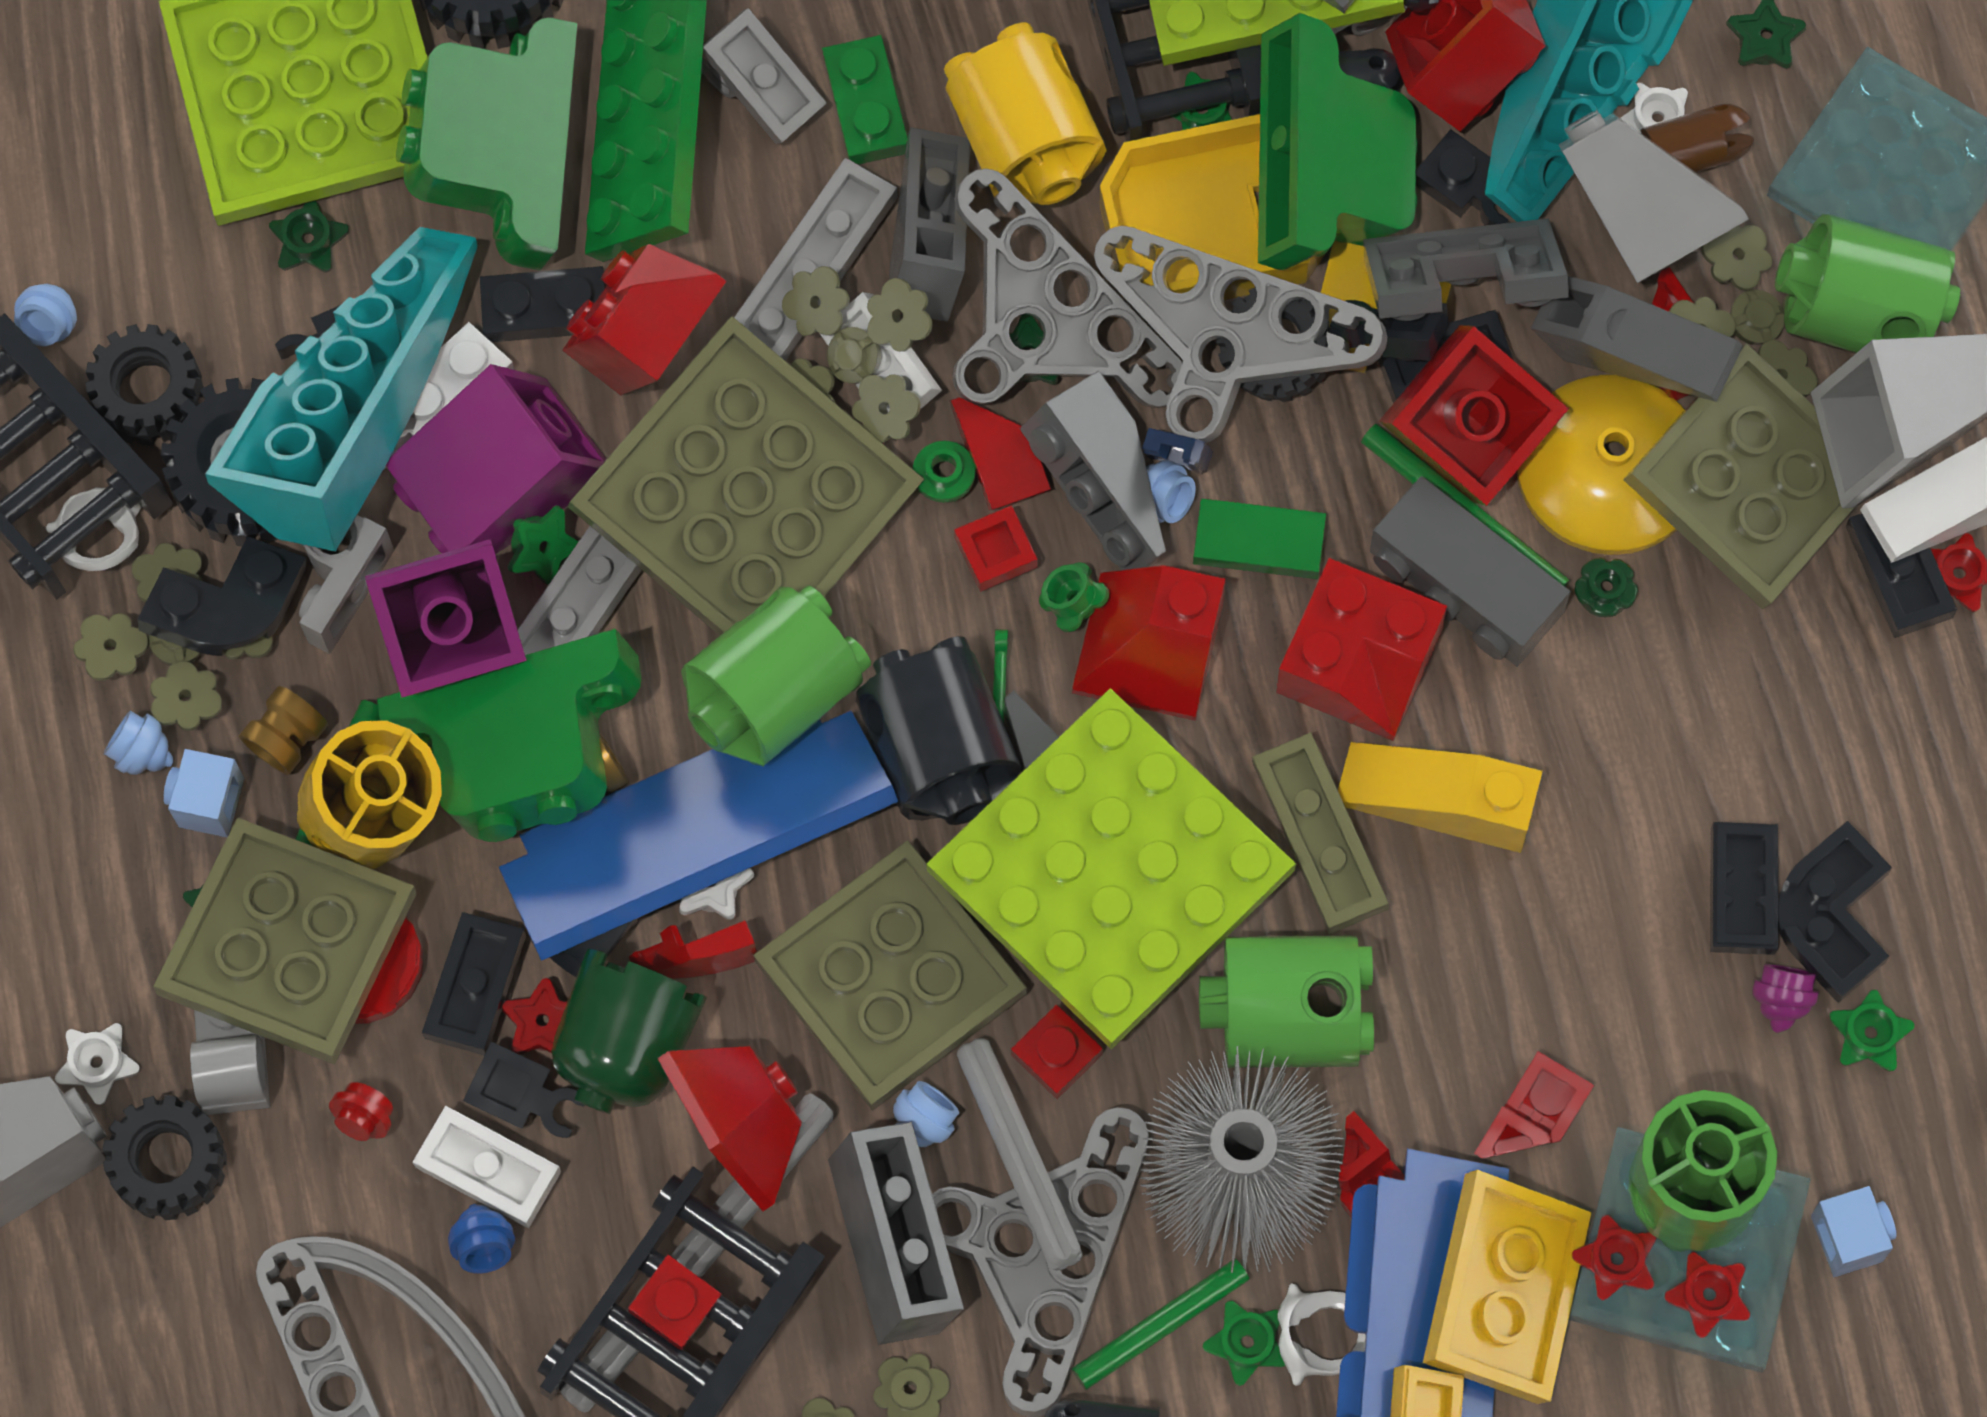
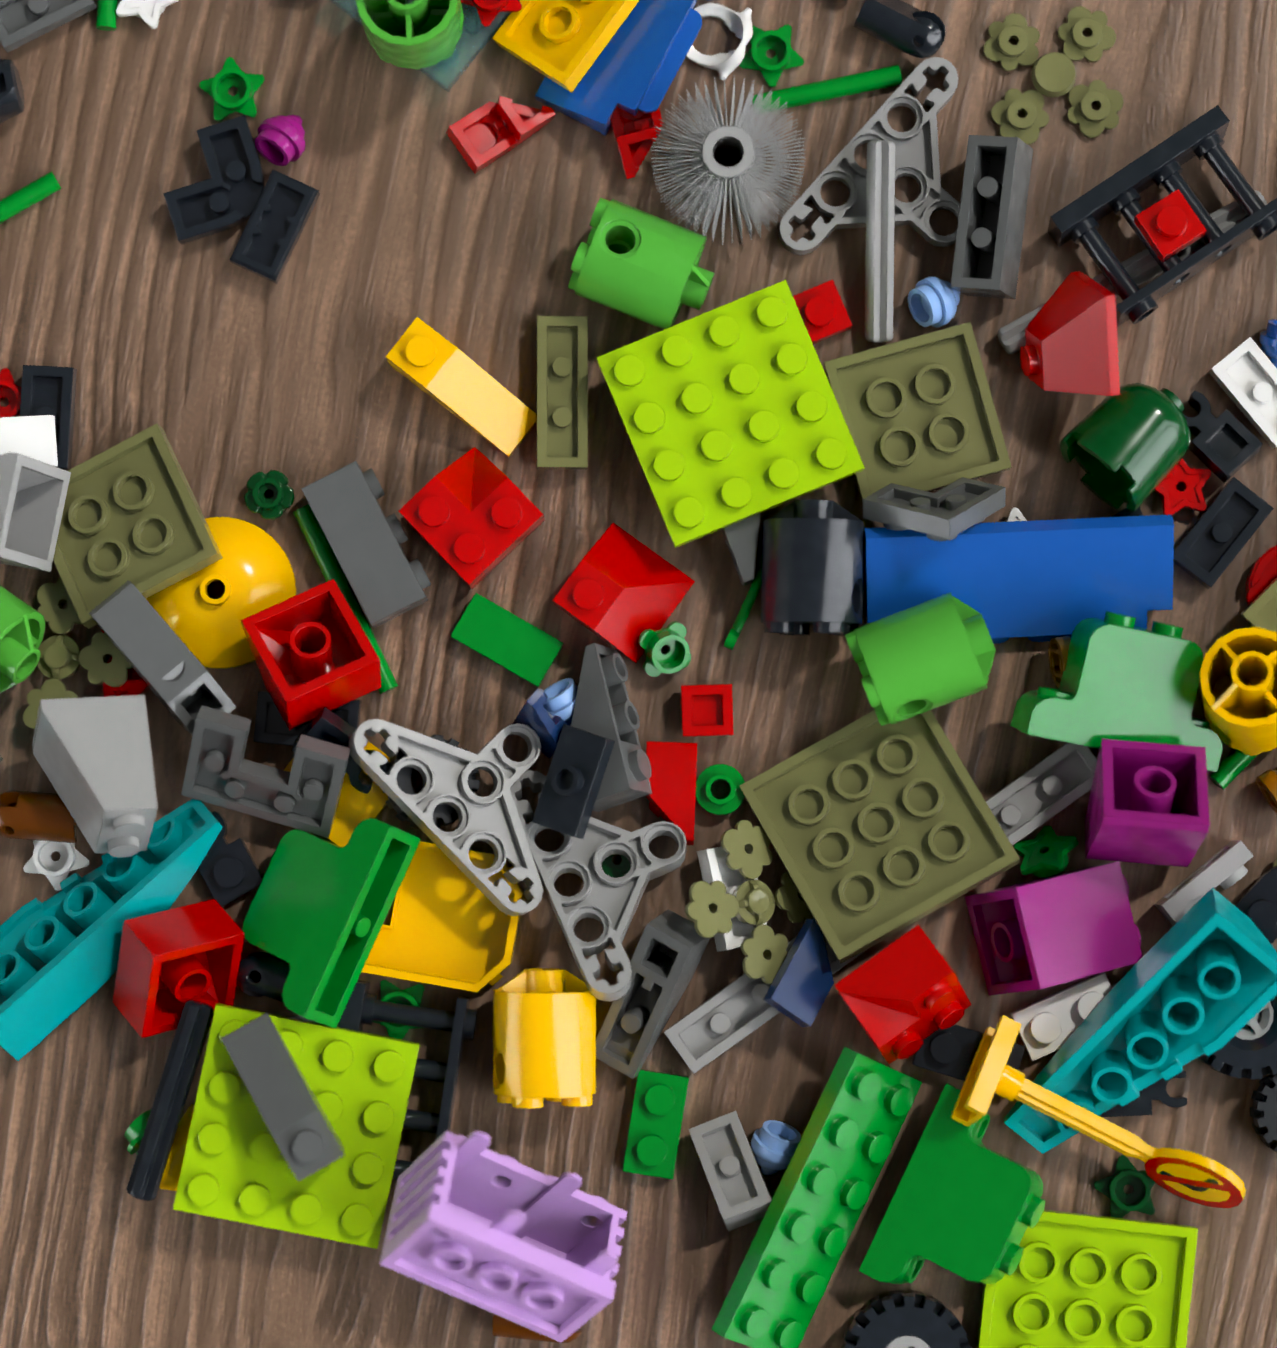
camera: 160 degrees left, 15 degrees up
(508, 268) = (1173, 1169): none -> yellow piece
(705, 956) = (1069, 495): red slope -> none
(723, 126) = (774, 1146): none -> light blue plate
(764, 291) = (803, 977): none -> dark blue tile
(818, 839) = (937, 514): none -> dark grey plate
(1113, 392) = (573, 781): none -> black plate

